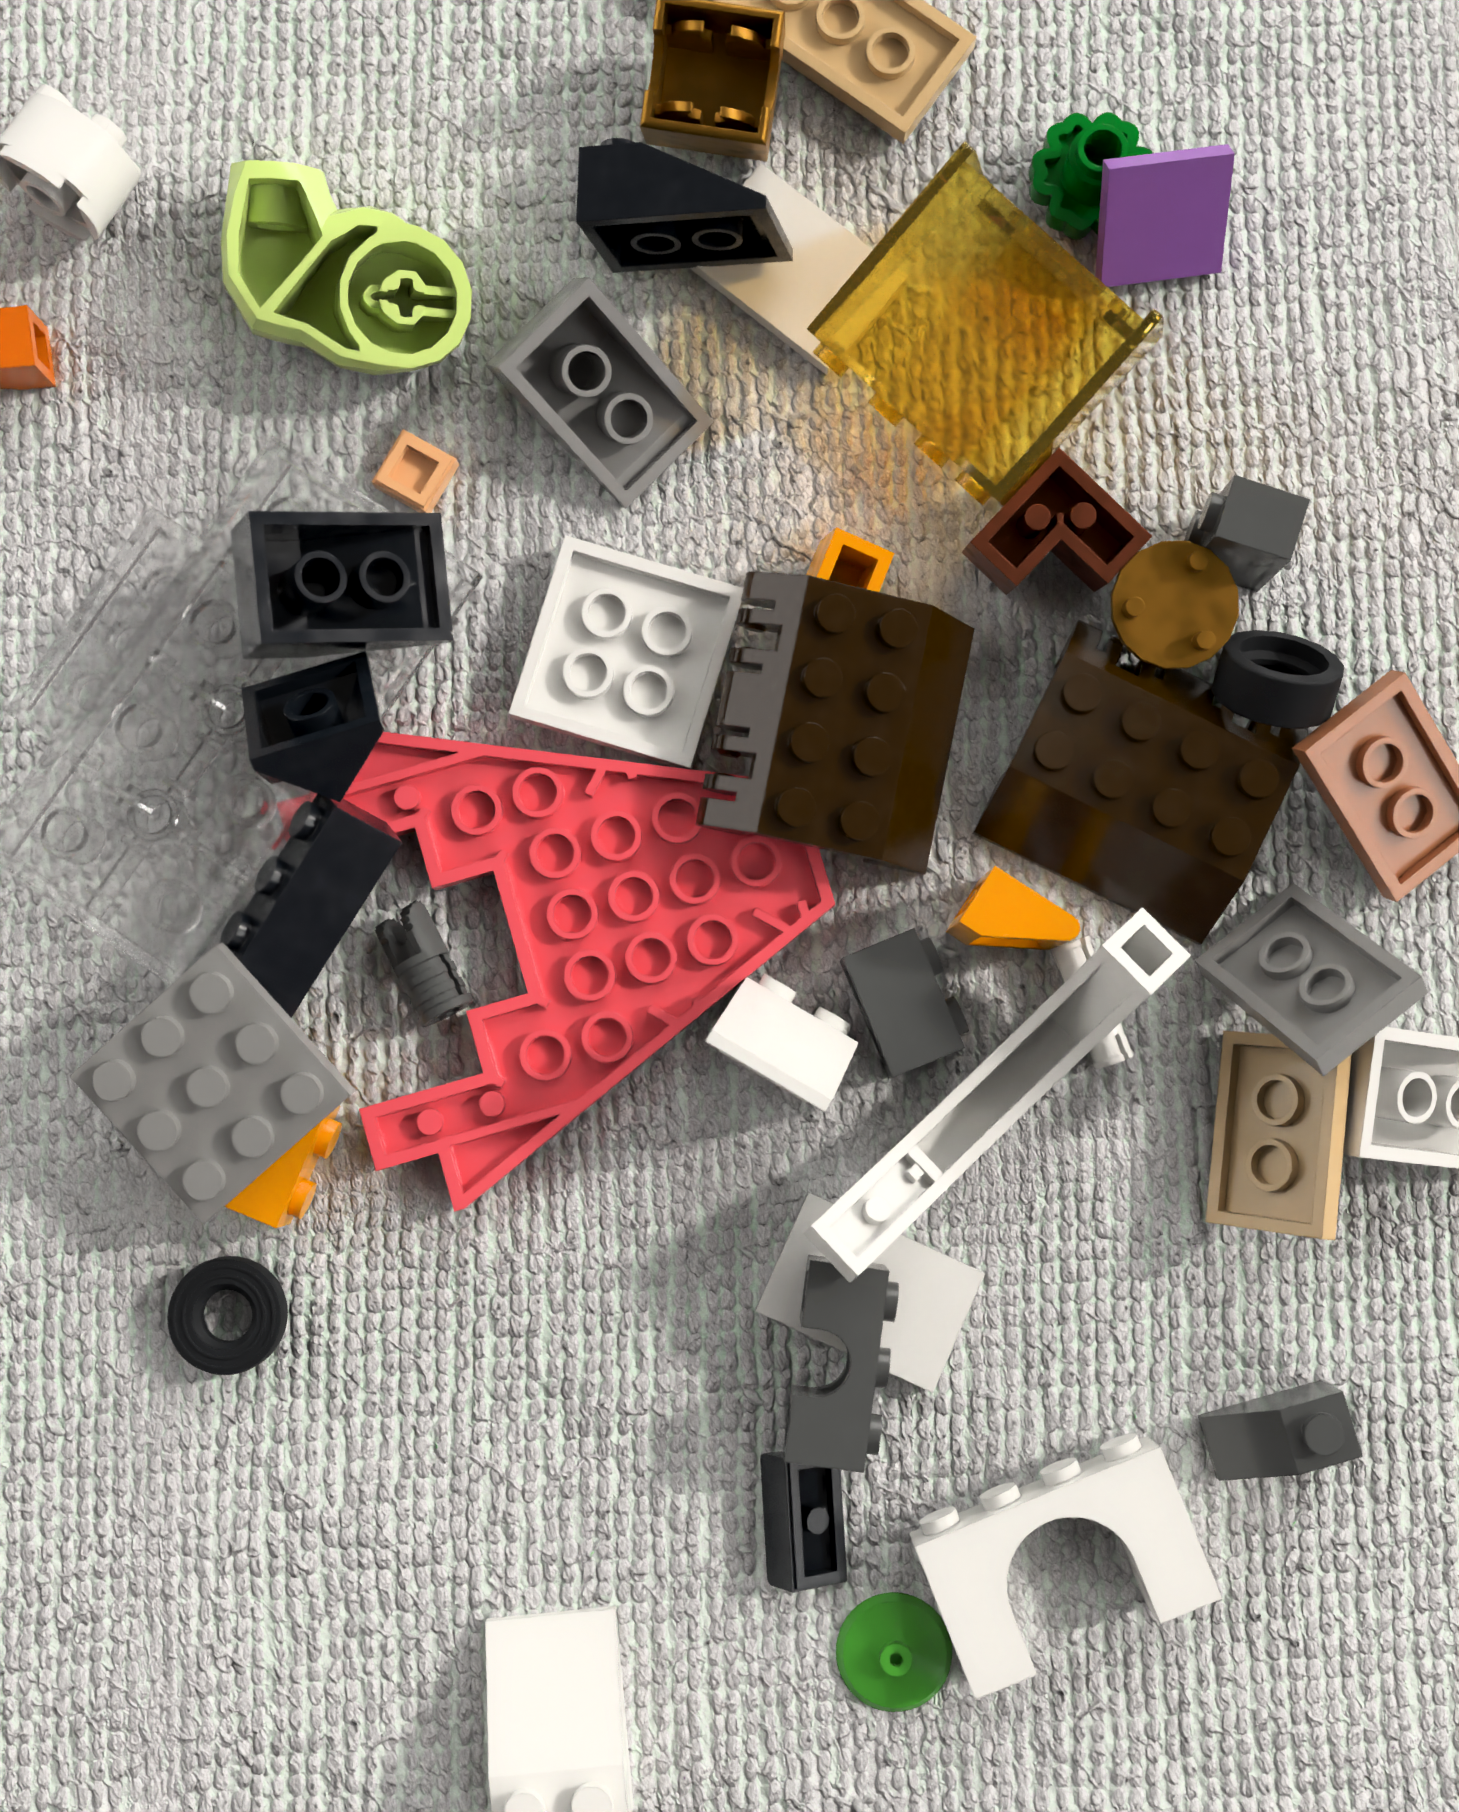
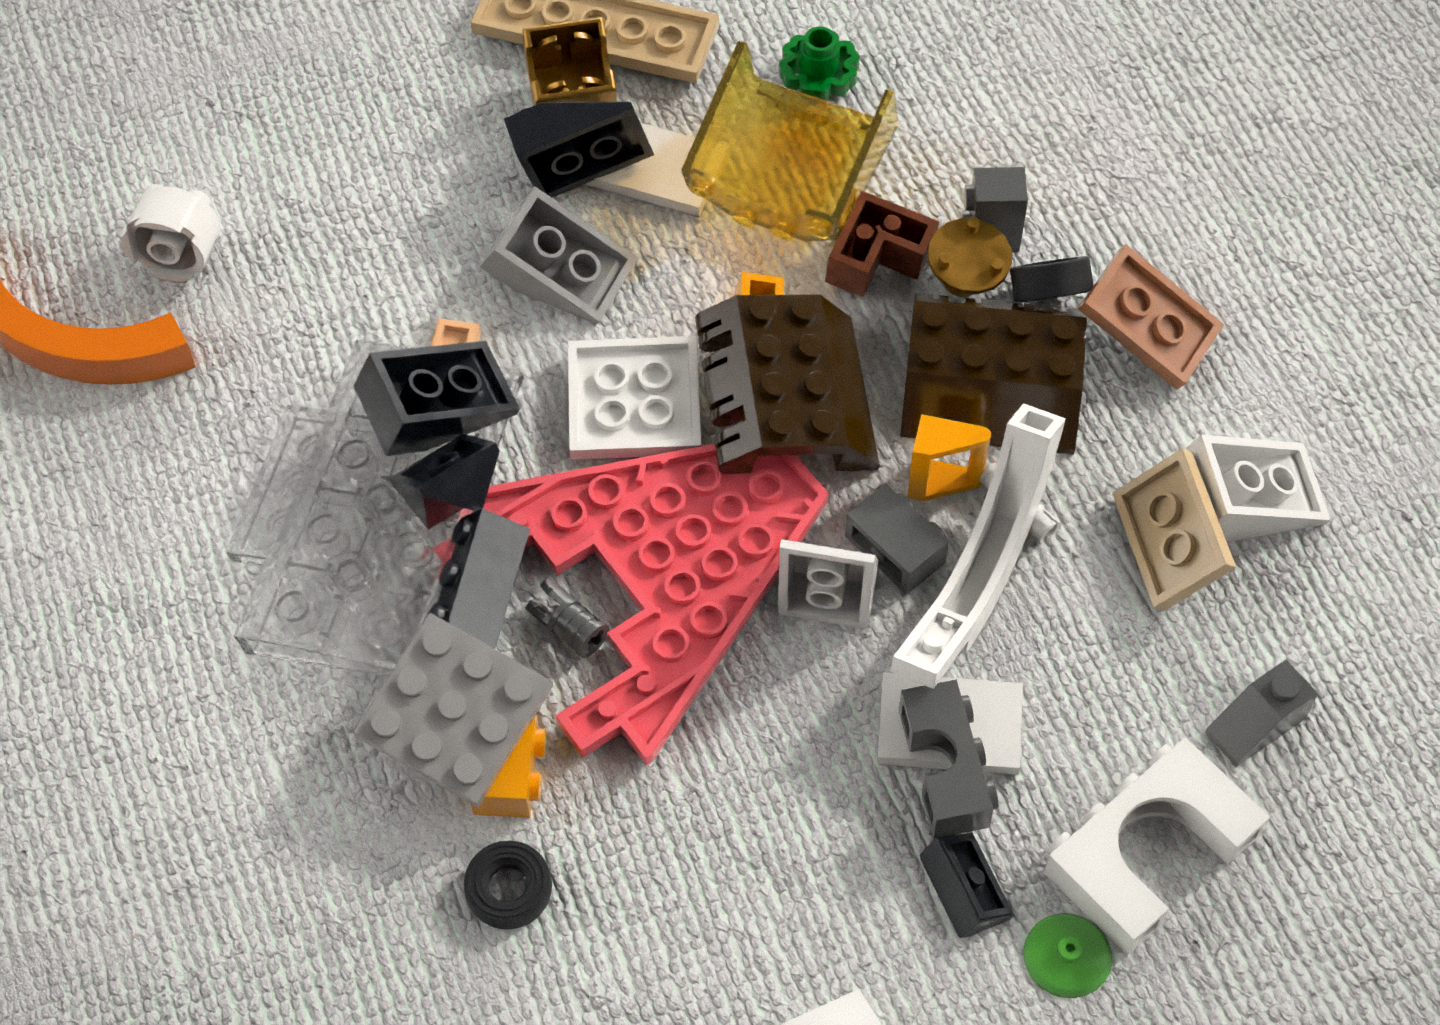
camera: 20 degrees left, 25 degrees down
(336, 279) = (376, 244): yellowish green piece -> none
(1163, 215) = (869, 62): medium lavender tile -> none
(1311, 978) = (1149, 428): light grey plate -> none

